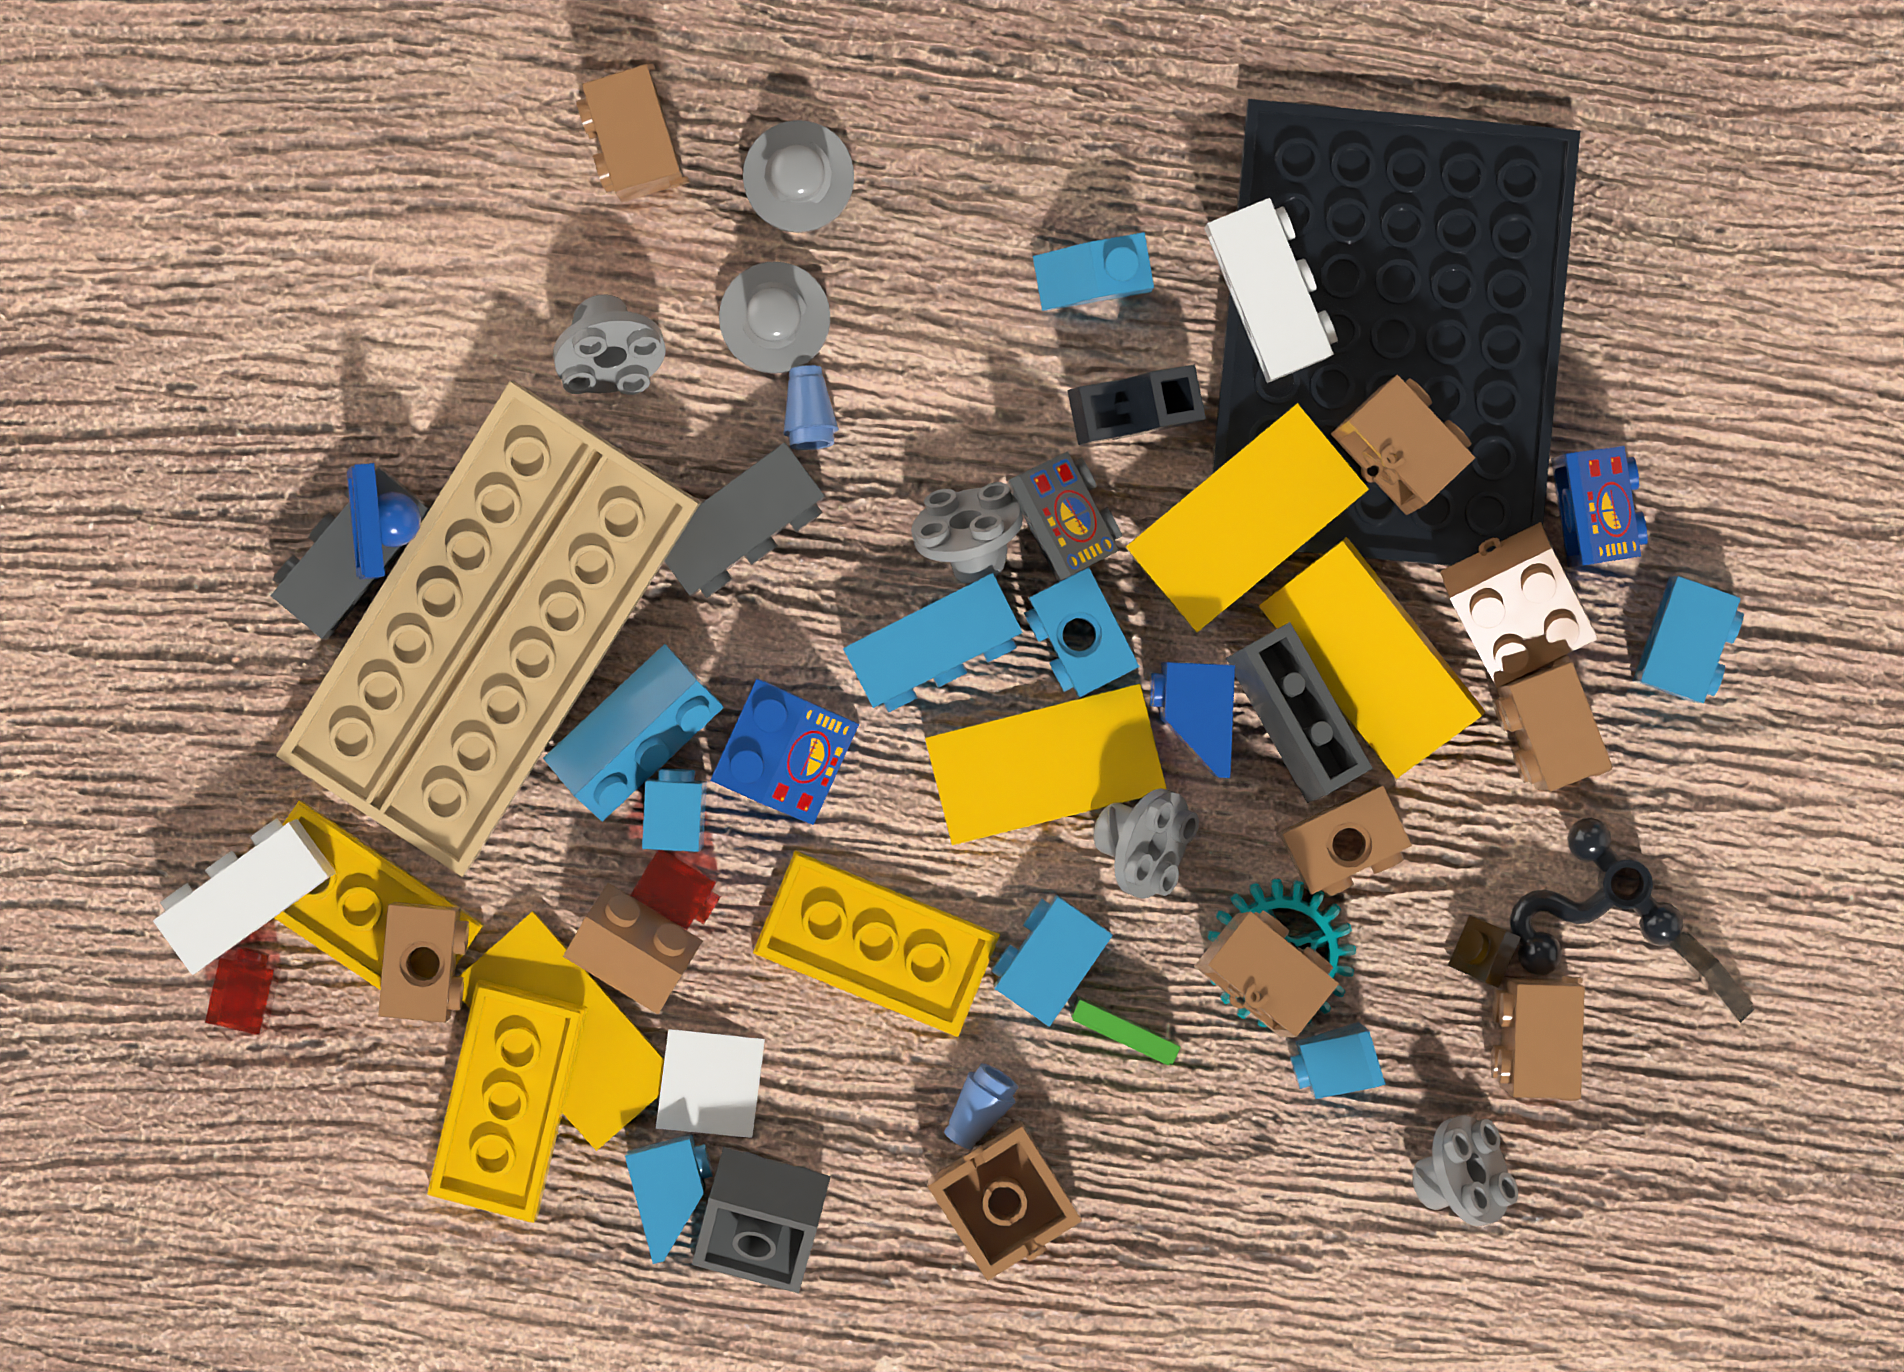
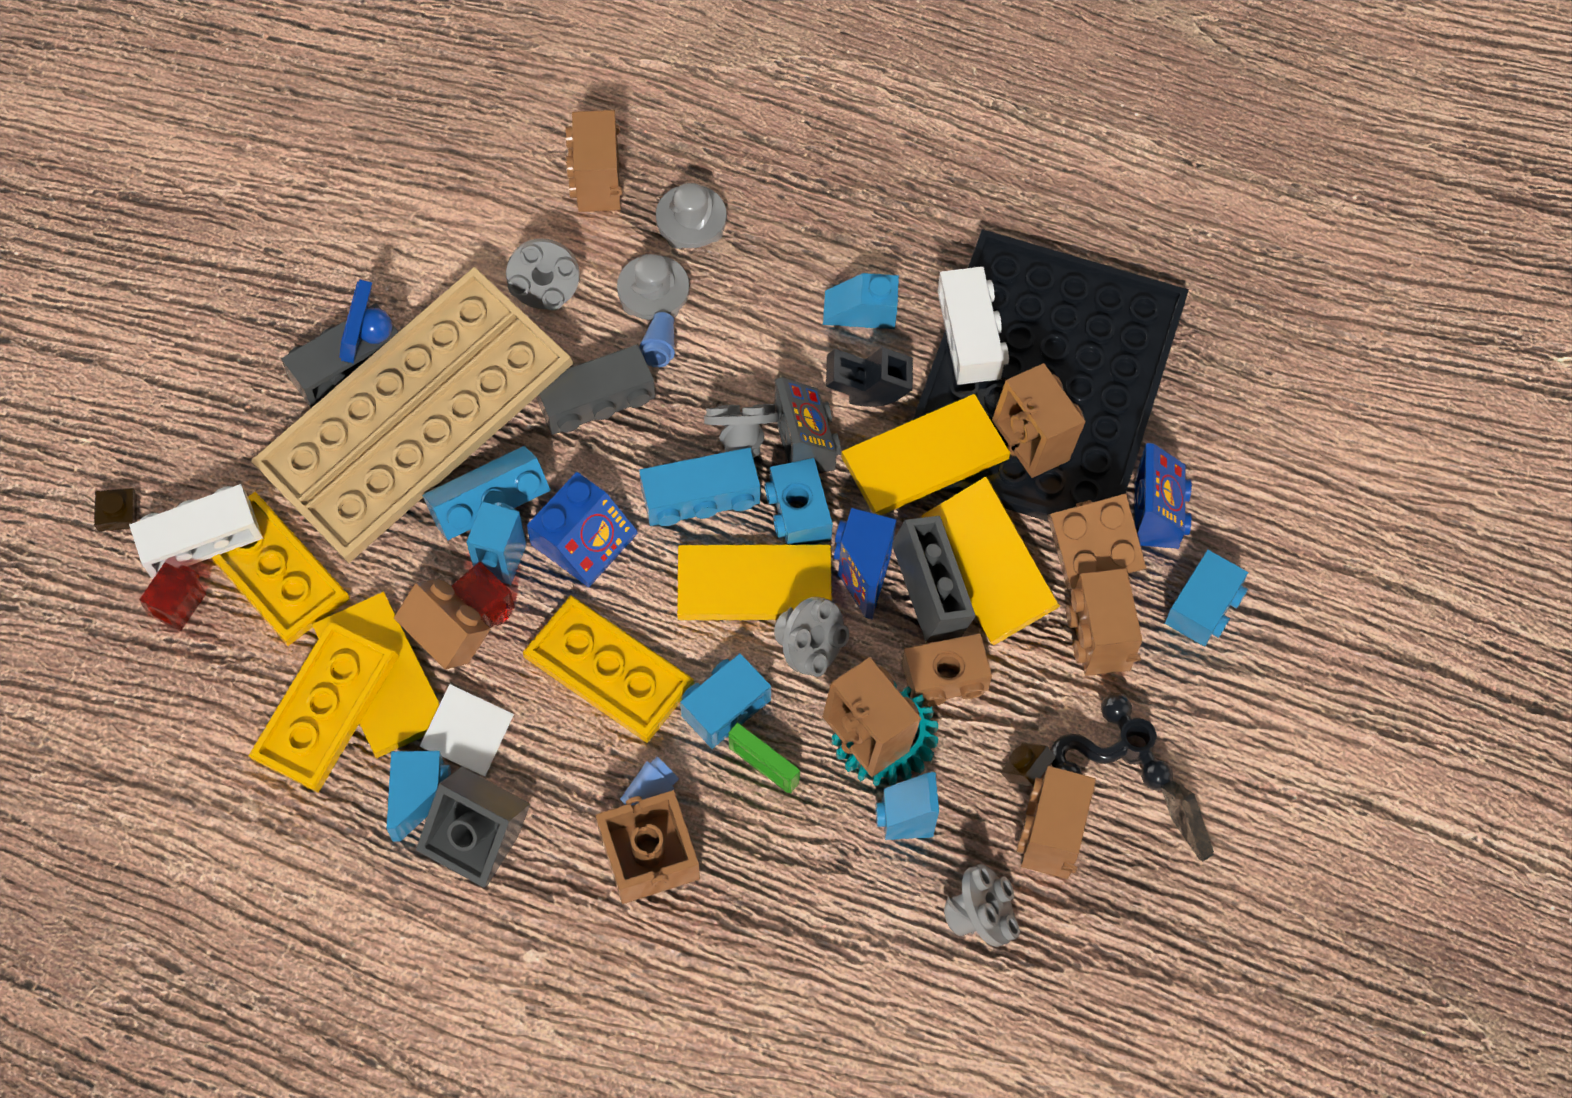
camera: 10 degrees right, 25 degrees down
(109, 874) = (115, 509): none -> dark brown plate
(404, 991) = (295, 576): medium nougat brick -> none

